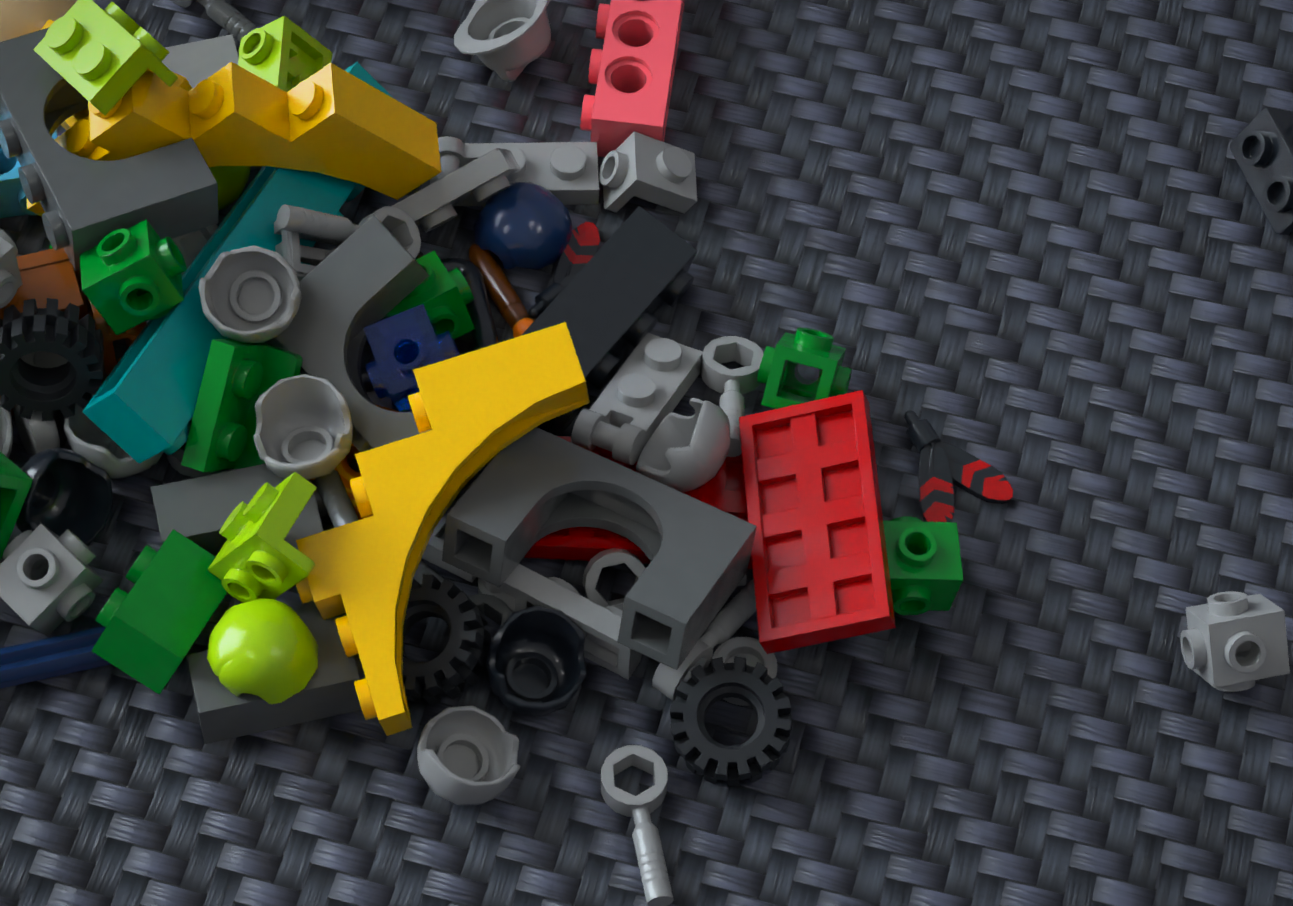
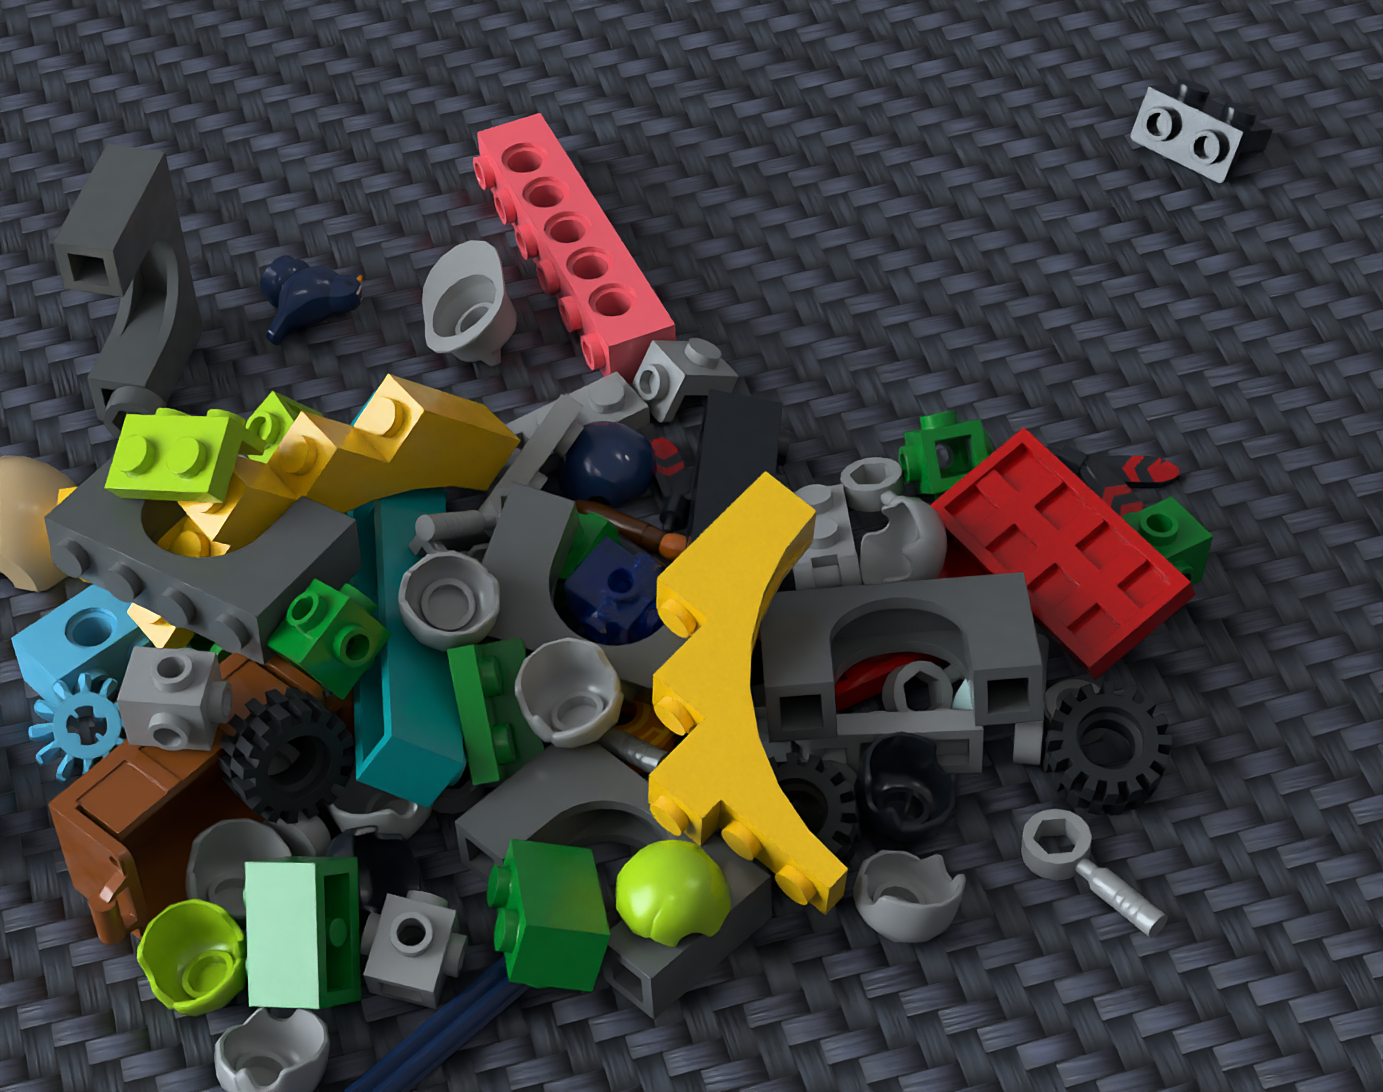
camera: 25 degrees left, 10 degrees down
(255, 555) = (615, 796): lime bracket -> none

